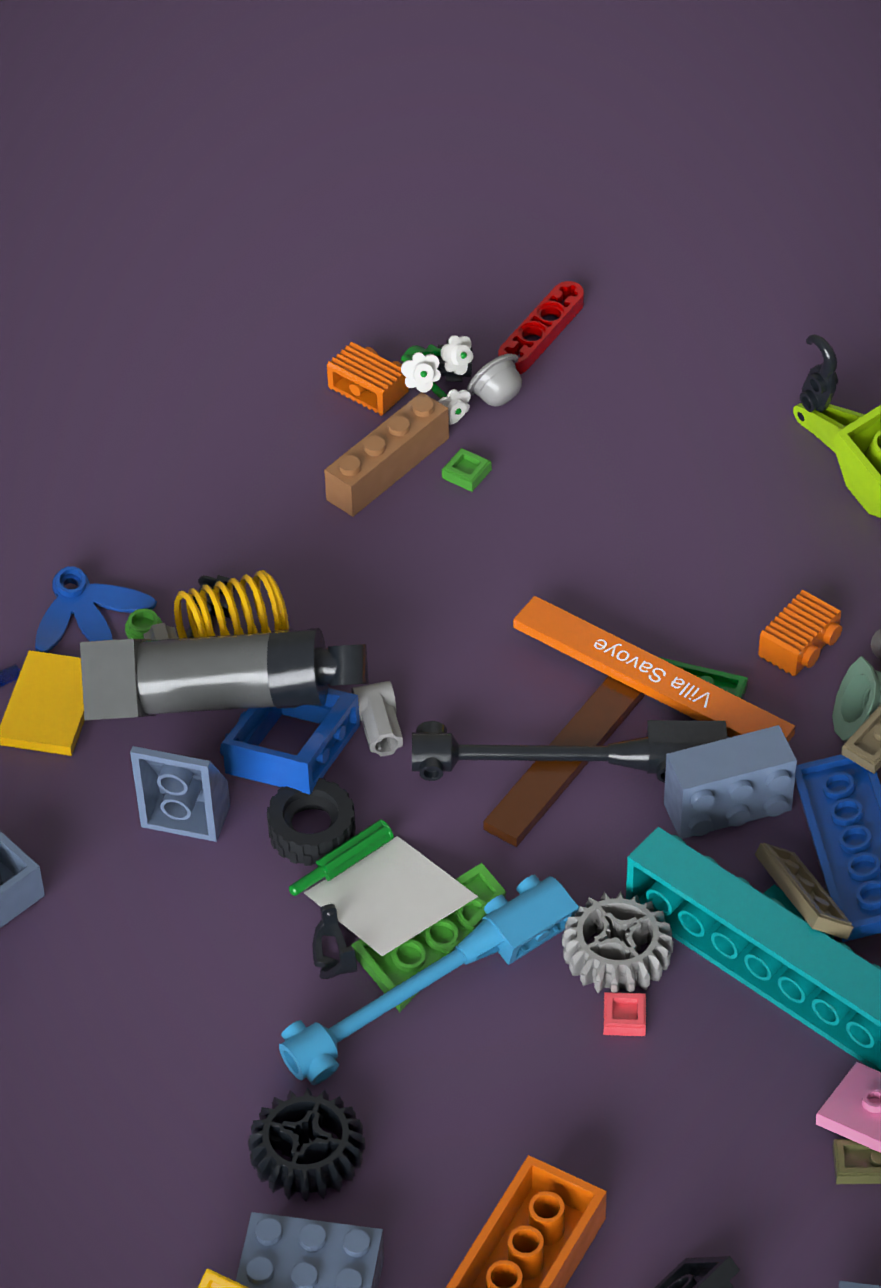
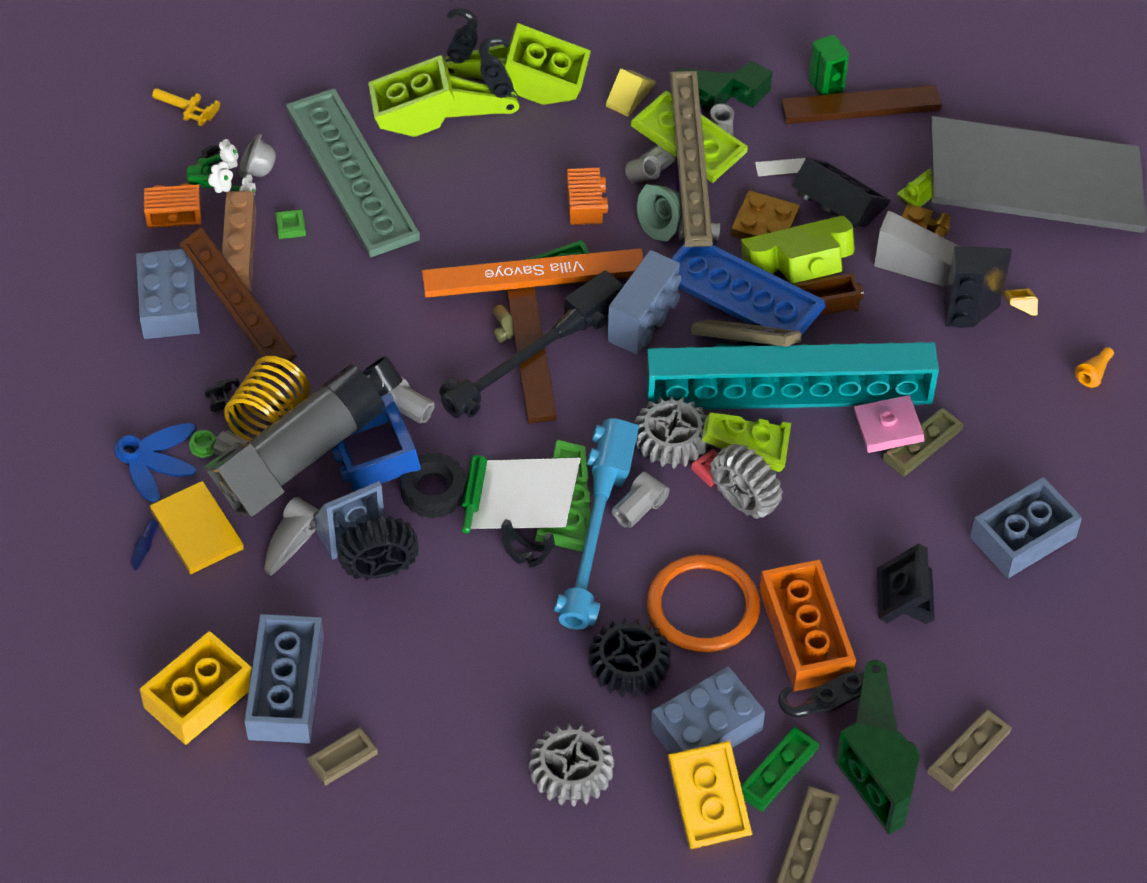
camera: 45 degrees left, 5 degrees up
(113, 775) = (291, 533): none -> light grey piece
(113, 1227) = (584, 777): none -> light grey gear
(175, 840) = (377, 548): none -> black gear
(267, 458) = (167, 294): none -> sand blue brick
(316, 506) = (236, 297): none -> reddish brown tile
(434, 1092) = (695, 644): none -> orange wedge
(496, 295) = (188, 105): none -> yellow piece
(515, 988) = (644, 494): none -> light grey piece
(548, 330) = (240, 110): red beam -> none
(566, 709) = (505, 319): none -> olive arm
(580, 458) = (352, 173): none -> sand green plate
(628, 1049) = (746, 481): none -> light grey gear
(689, 1012) = (764, 438): none -> lime wing
(732, 416) = (425, 94): none -> lime slope

